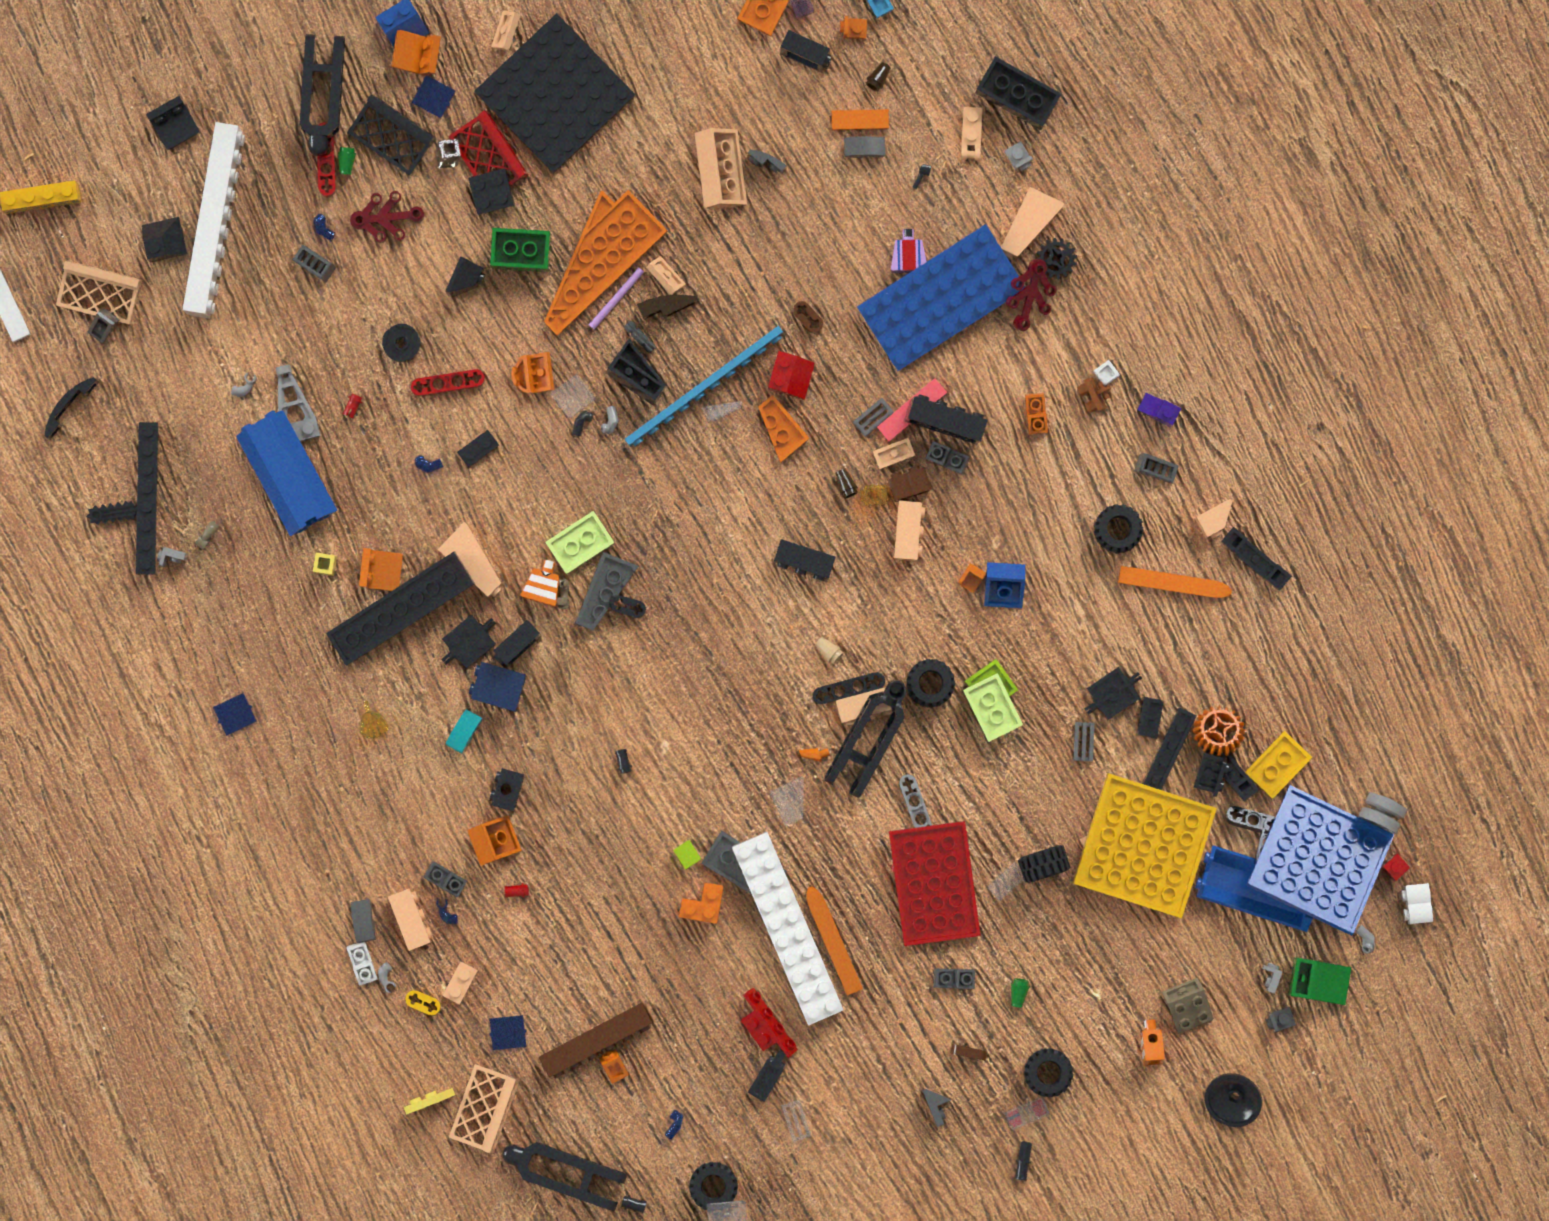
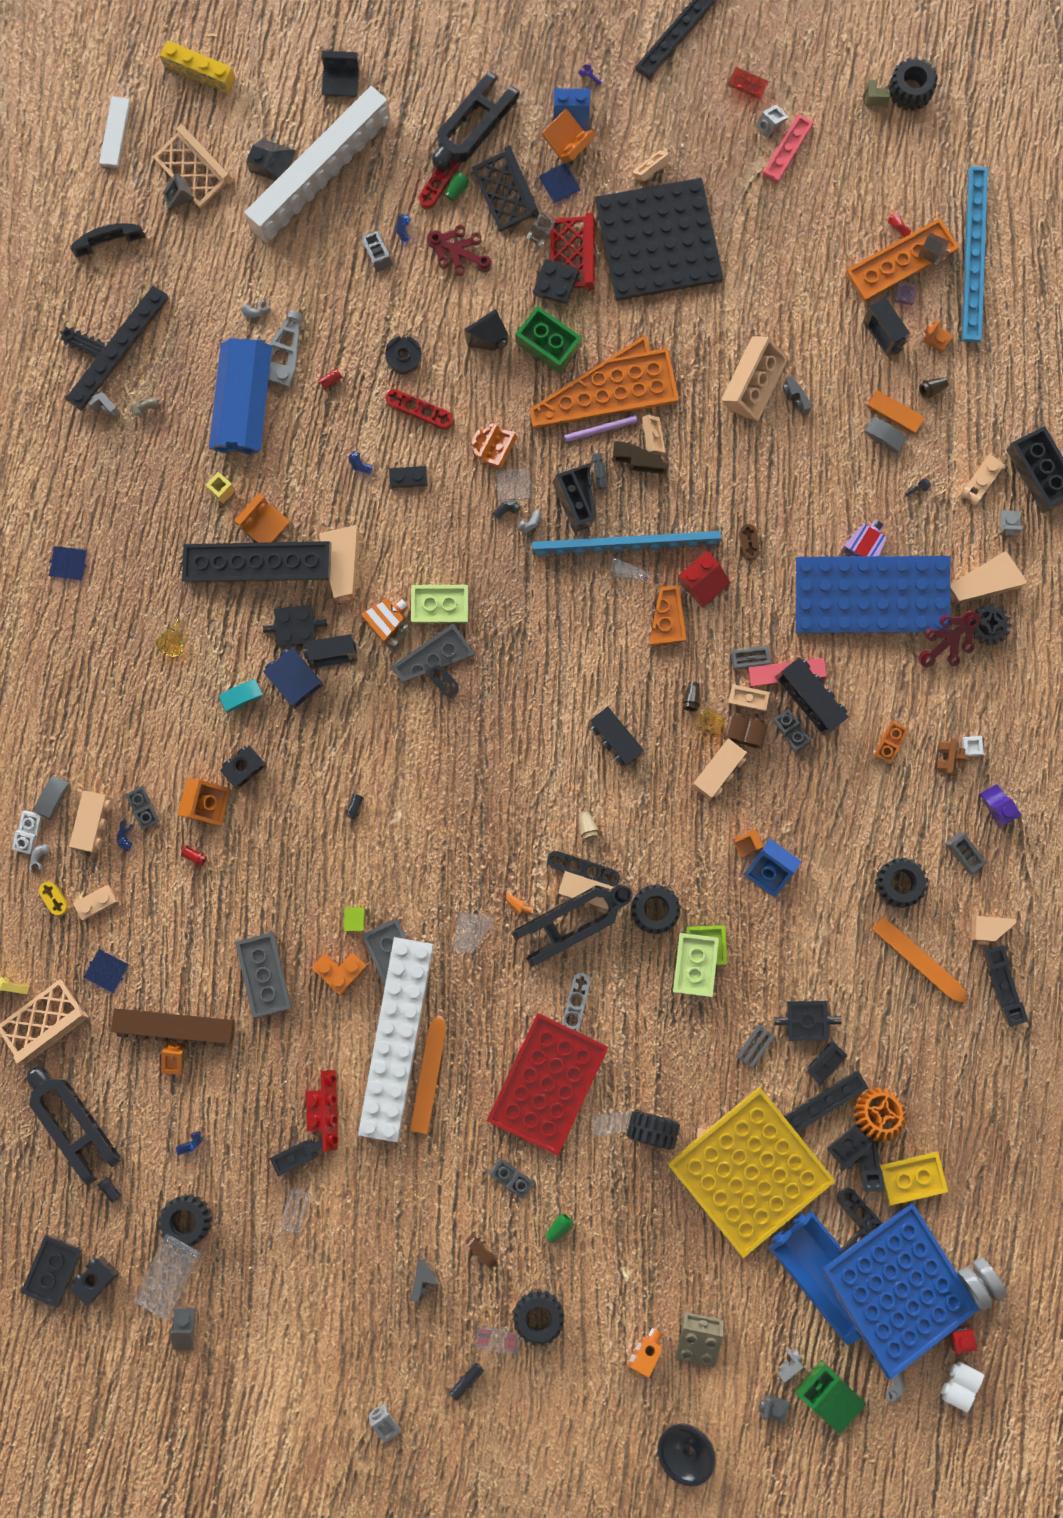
camera: 40 degrees right, 5 degrees down
(641, 949) = (263, 975): none -> dark grey plate

